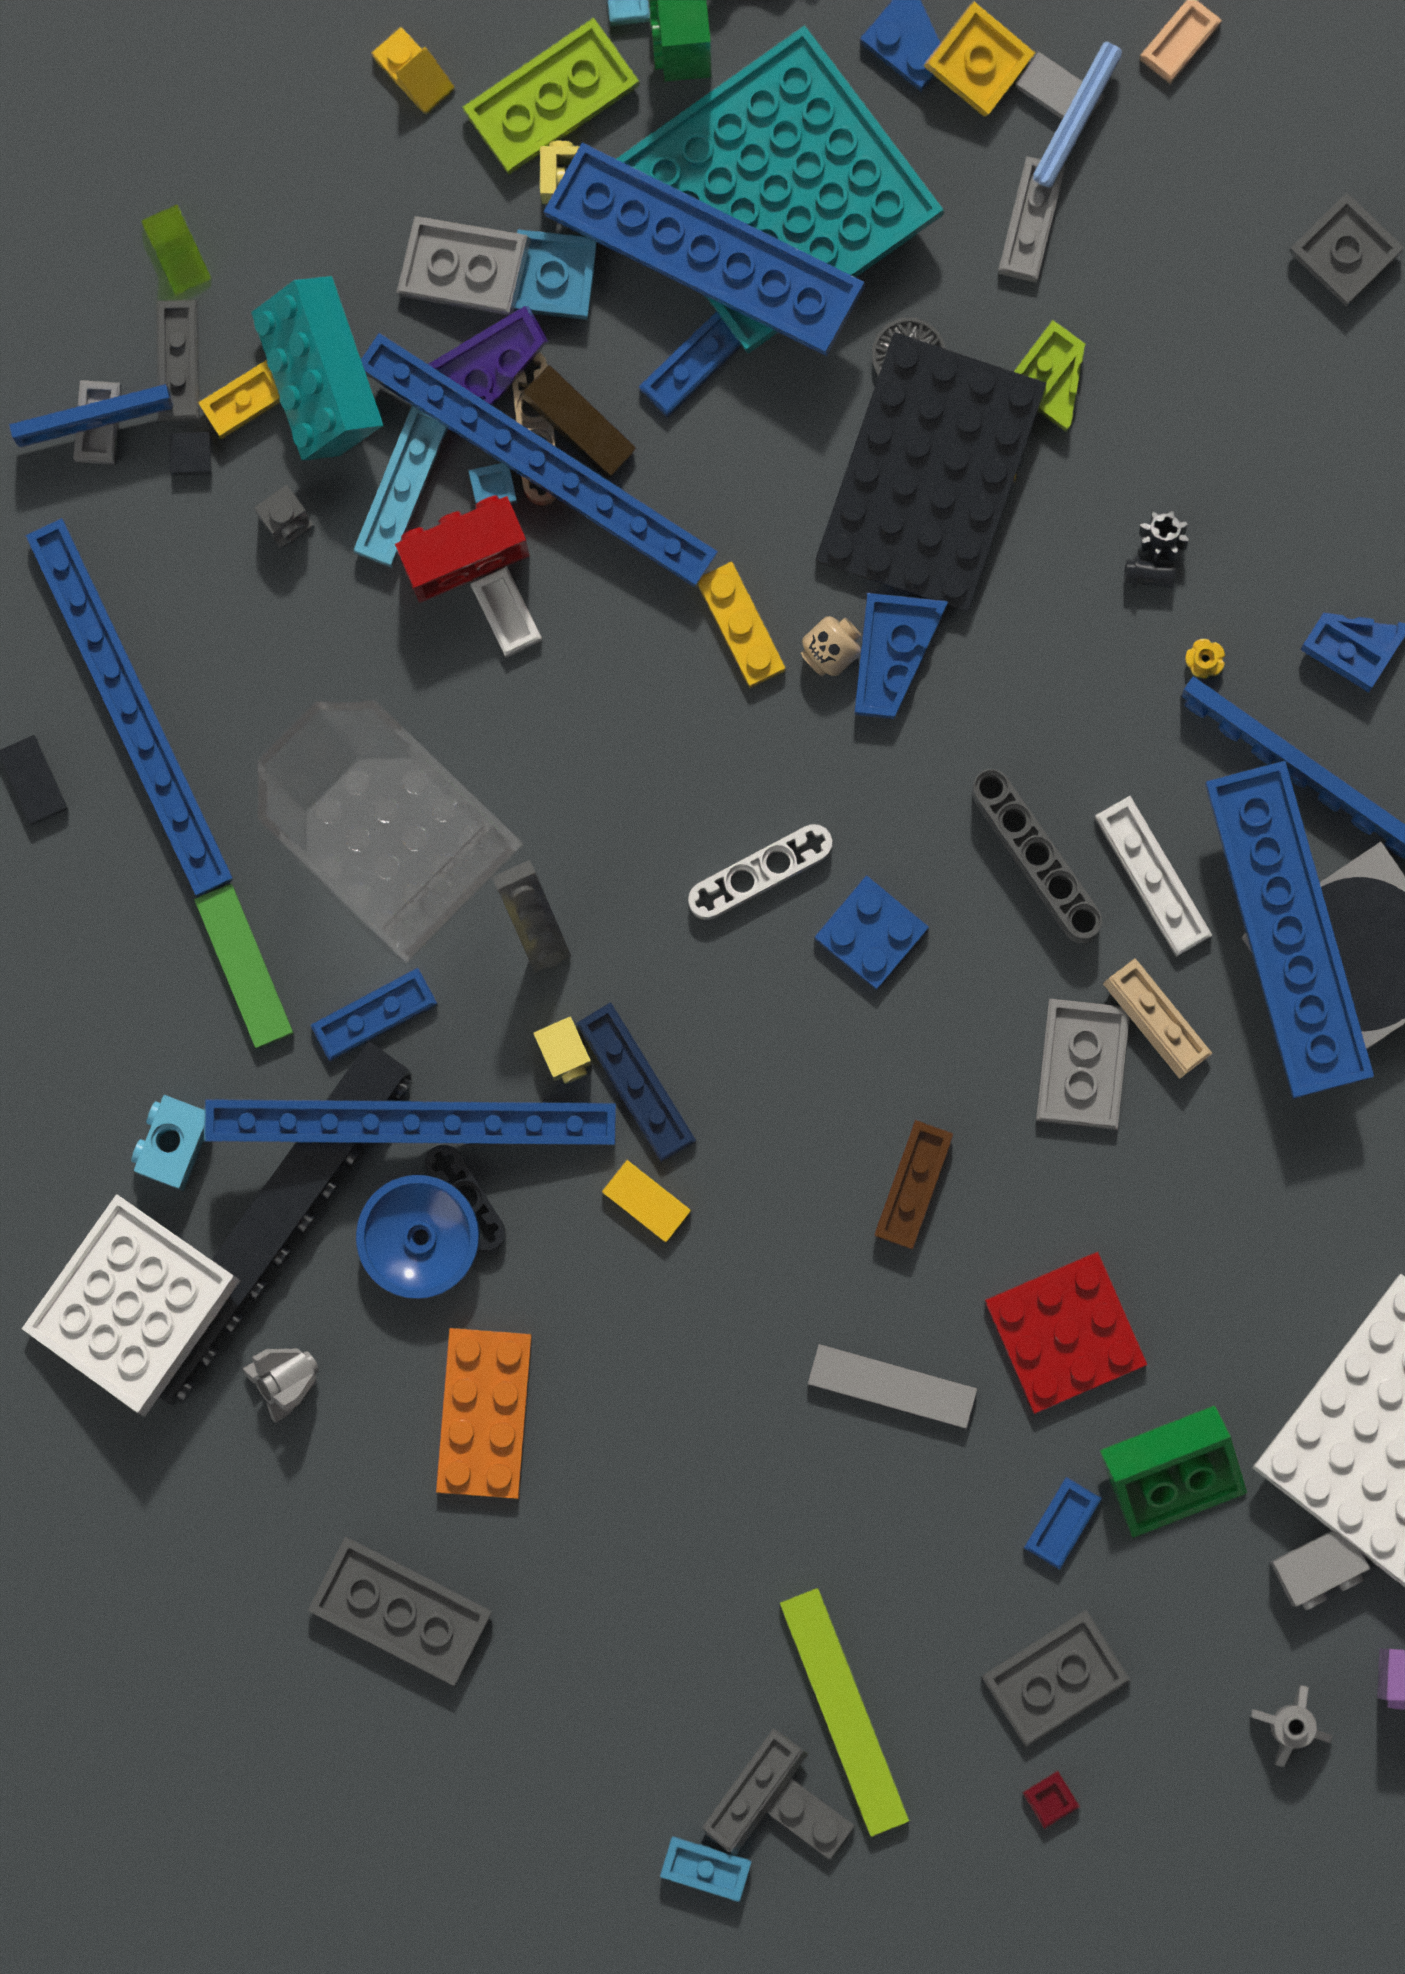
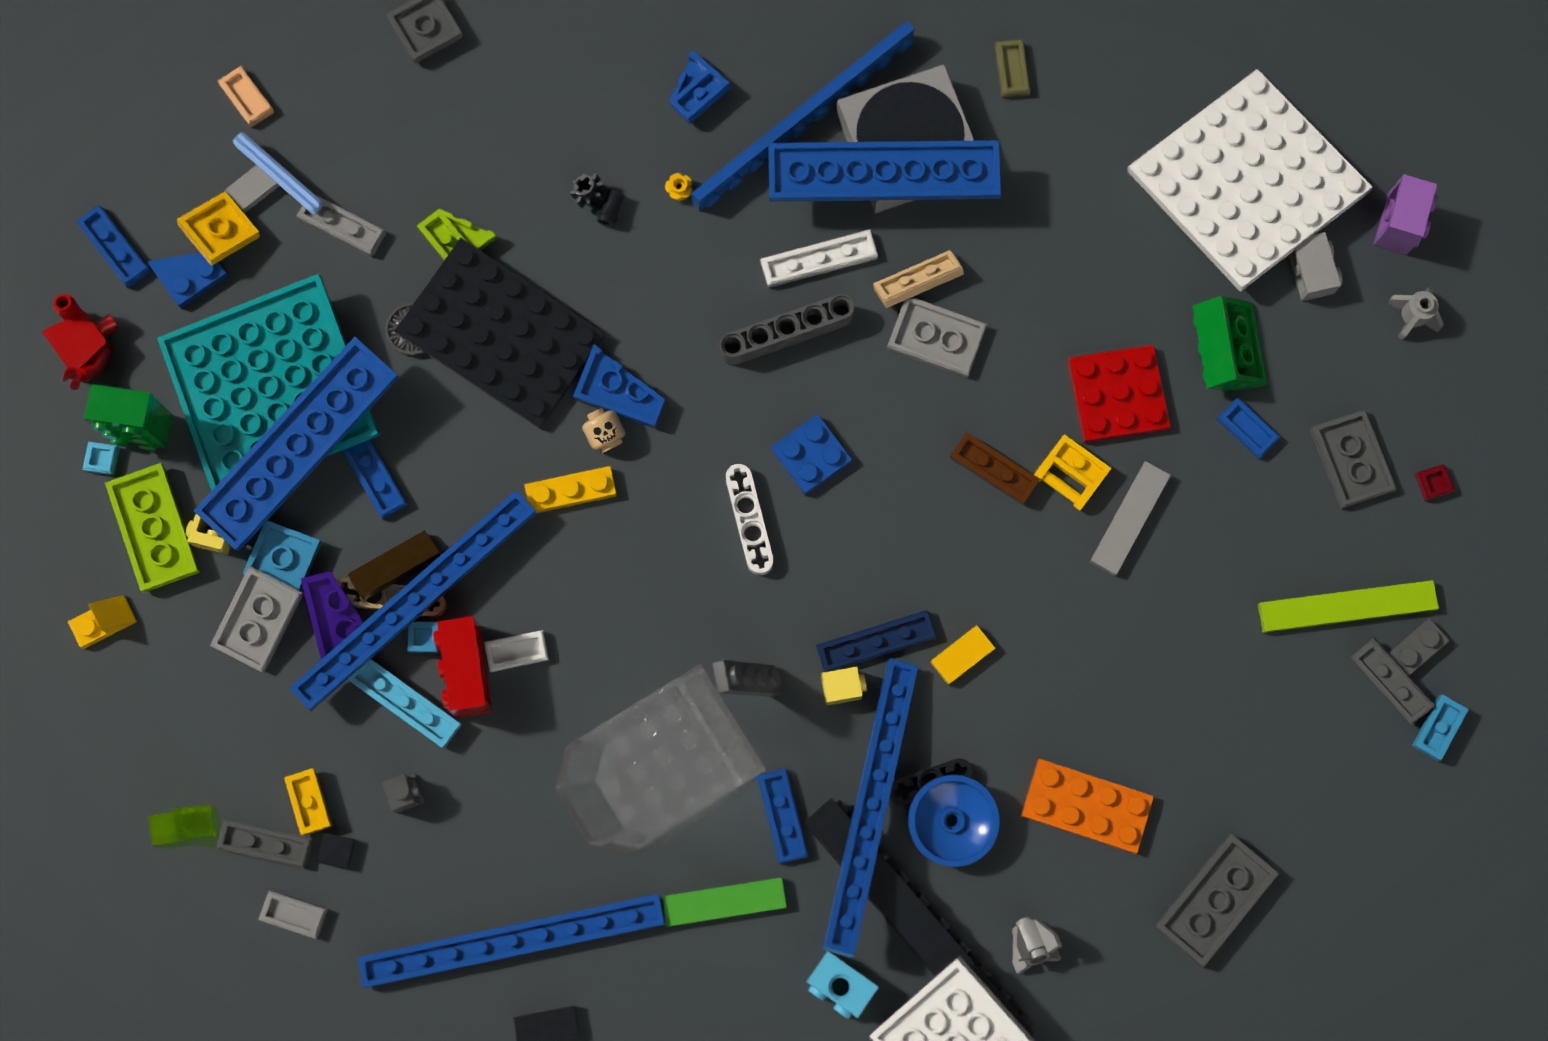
camera: 85 degrees left, 5 degrees down
(91, 416) = (288, 915): blue tile -> none
(316, 368) = (301, 739): teal brick -> none
(948, 1297) = (1077, 464): none -> yellow plate

